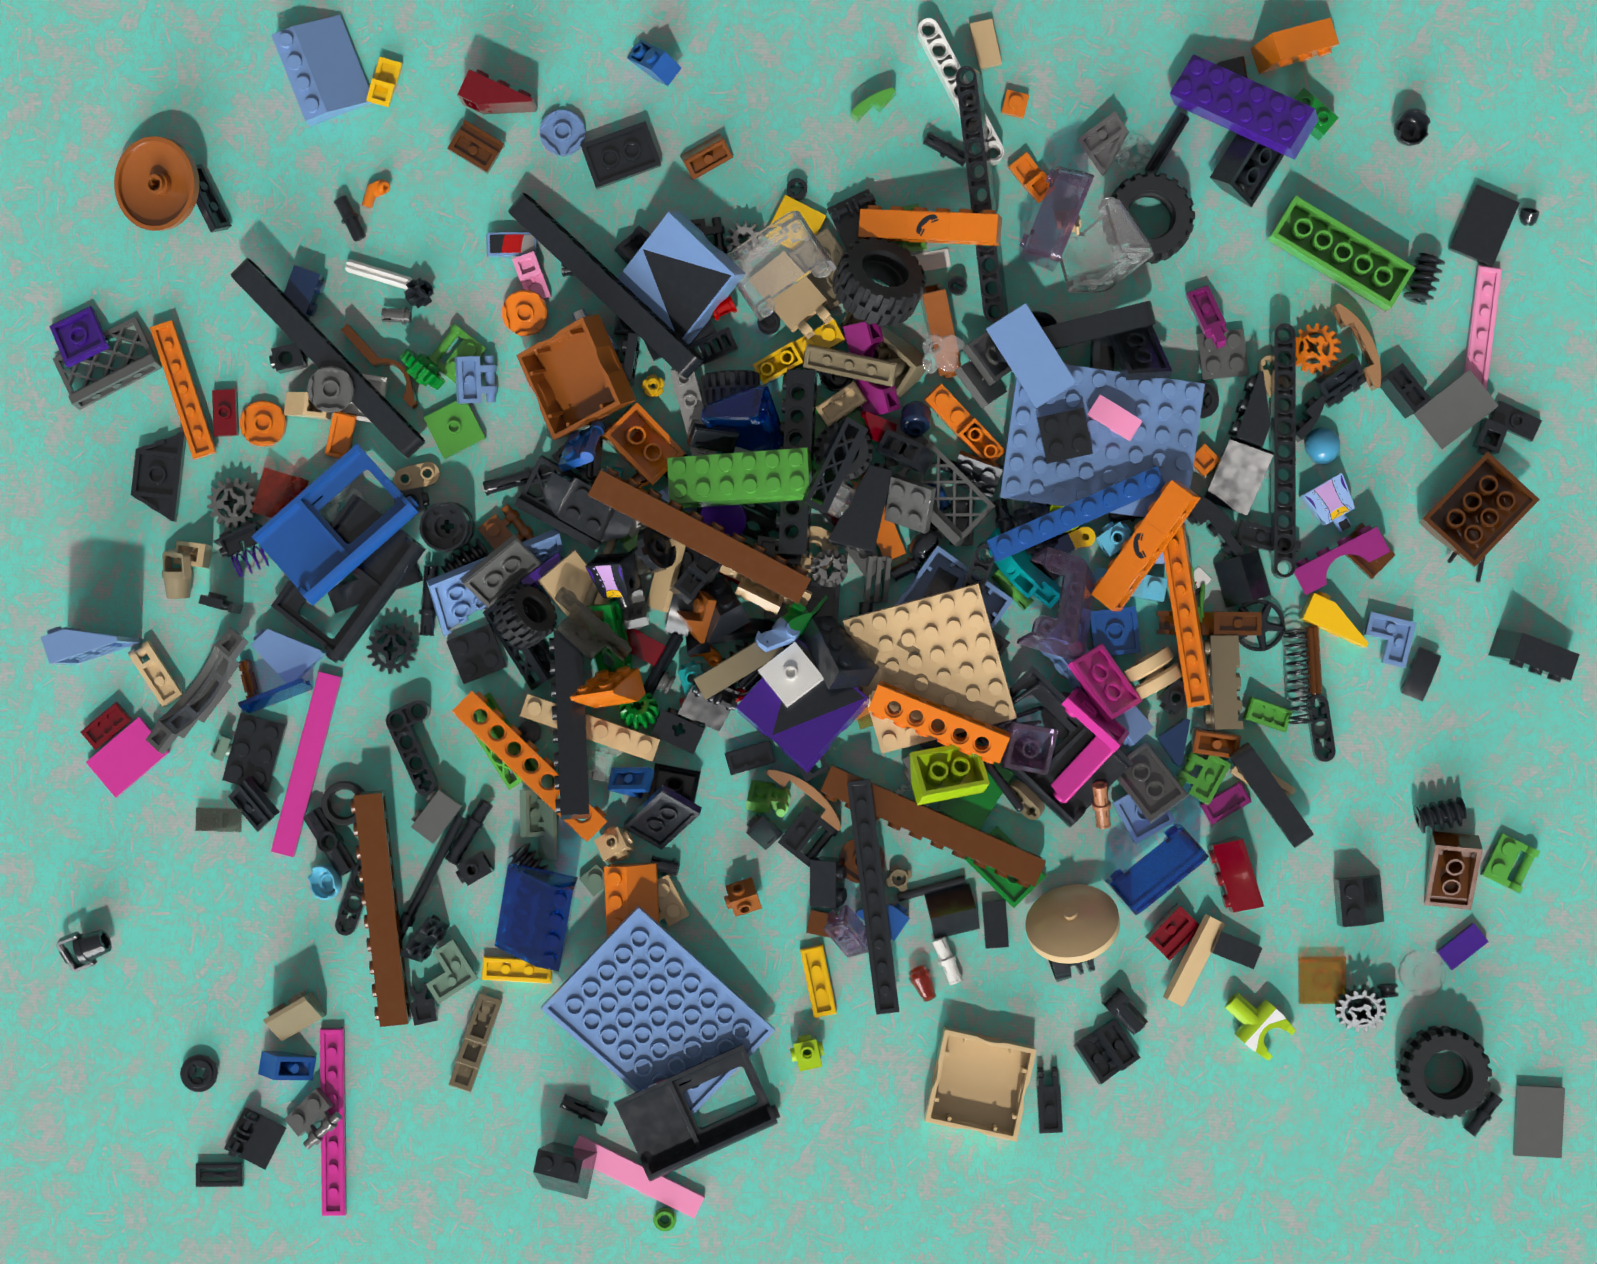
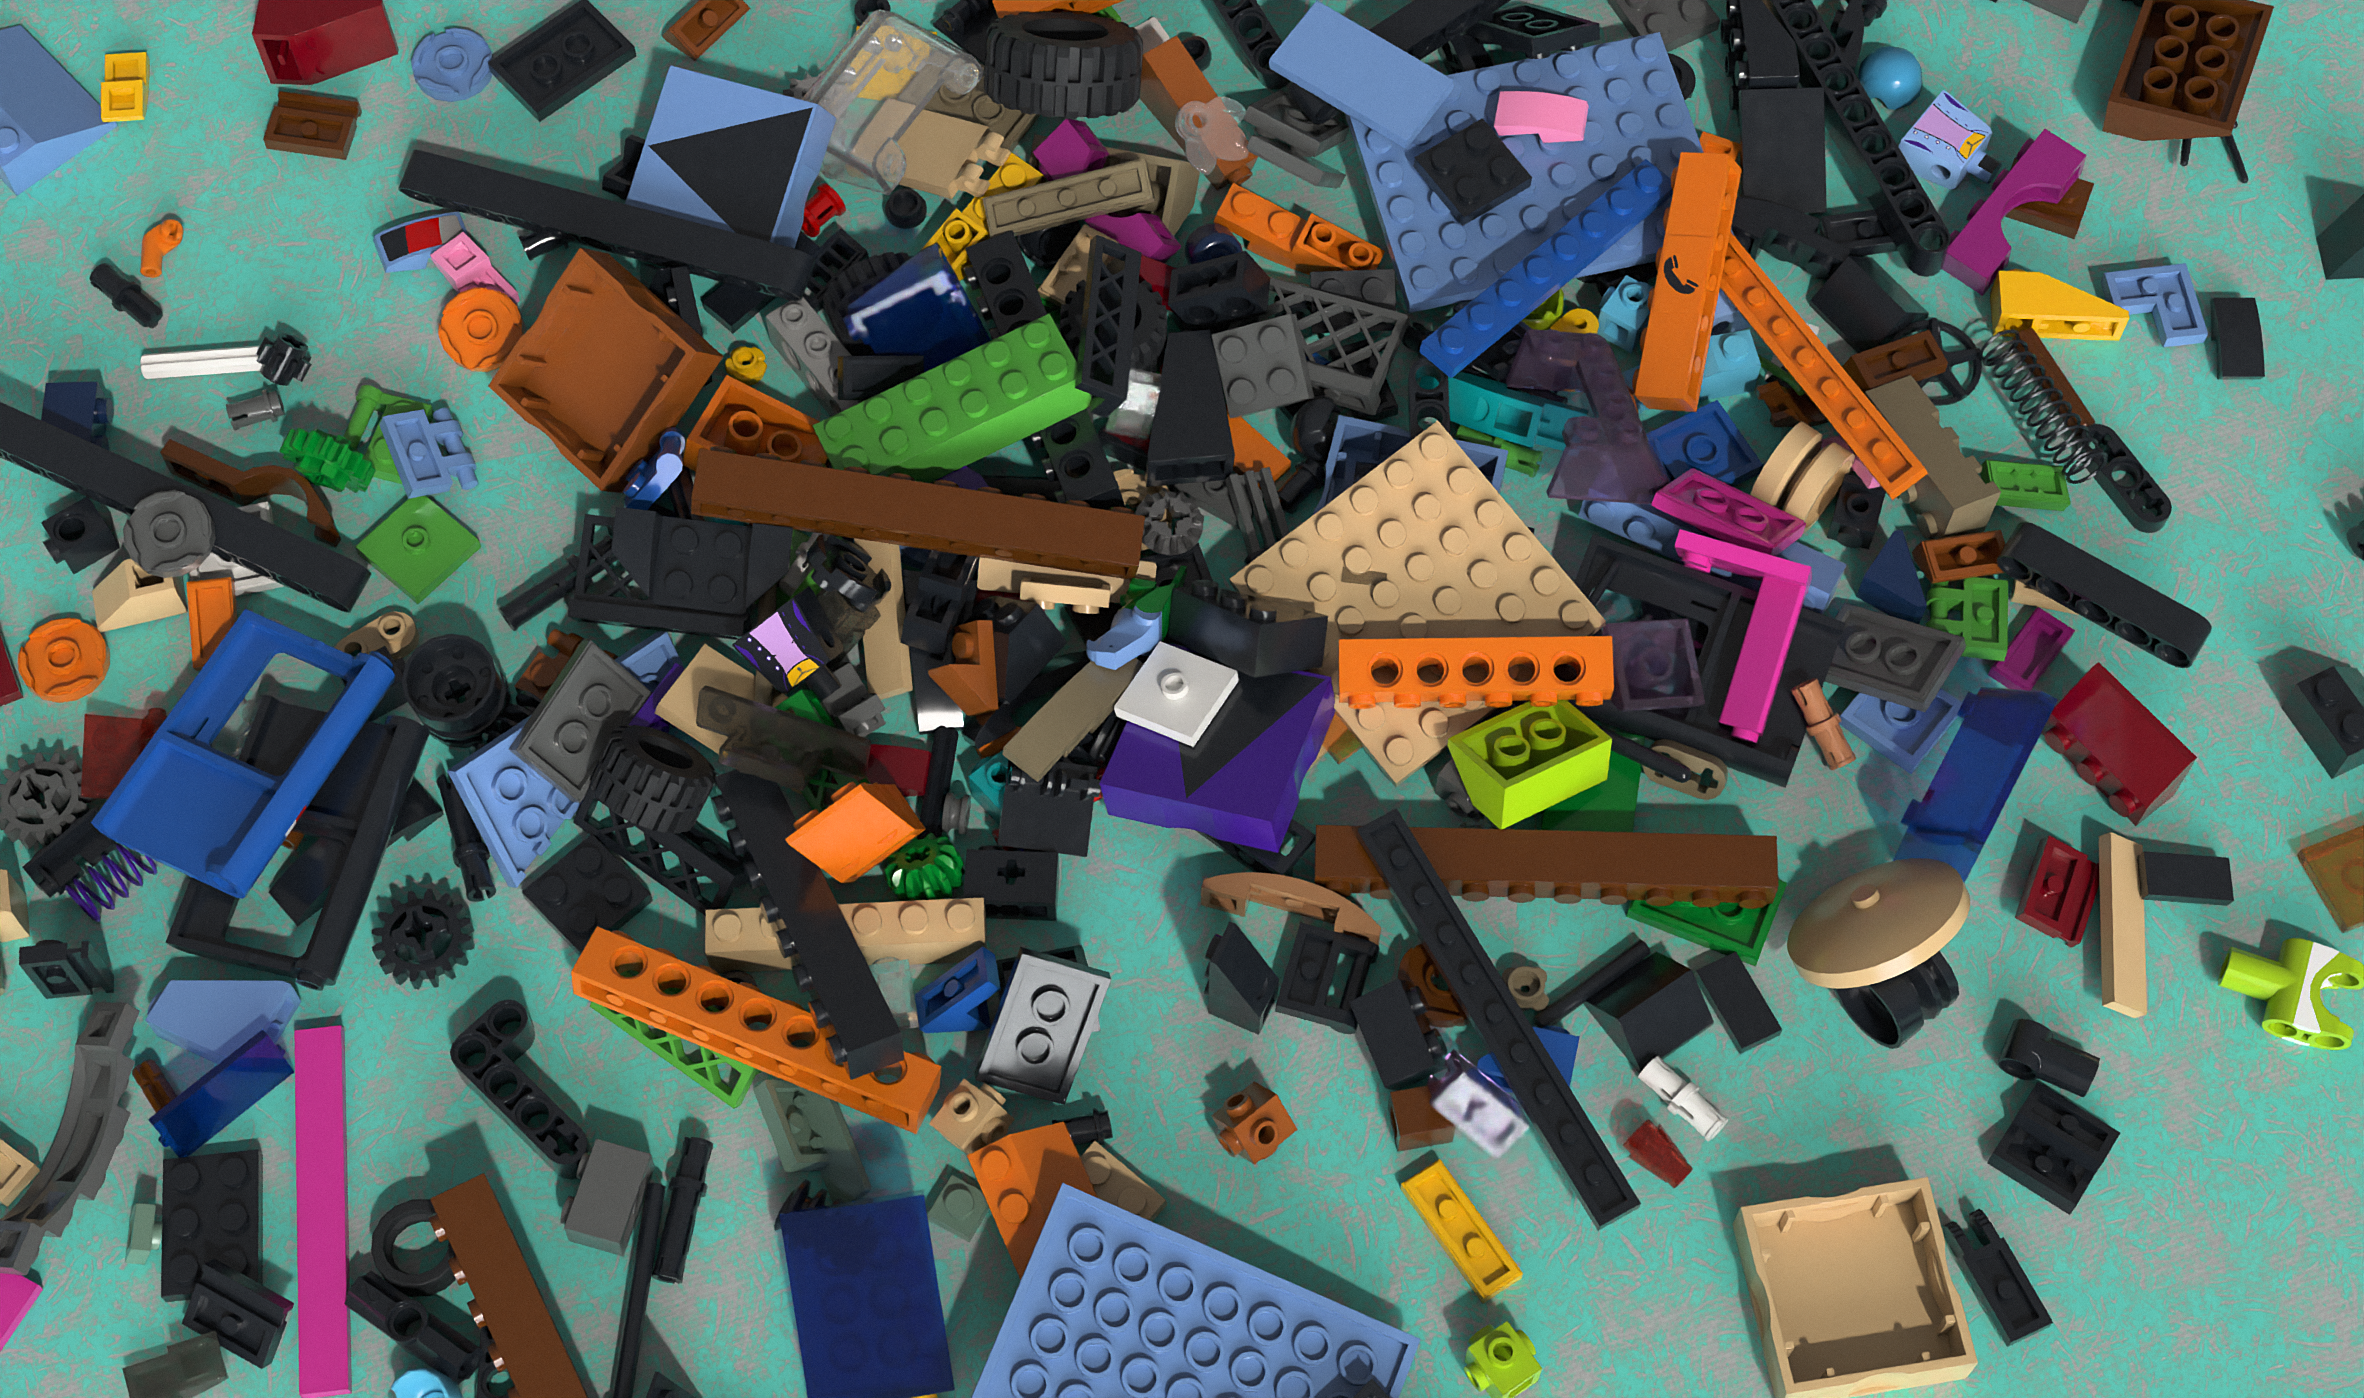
camera: 20 degrees left, 25 degrees down
(474, 868) = (717, 1271): black brick -> none
(749, 757) = (1161, 883): black plate -> none
(764, 796) = (1201, 931): bright green plate -> none

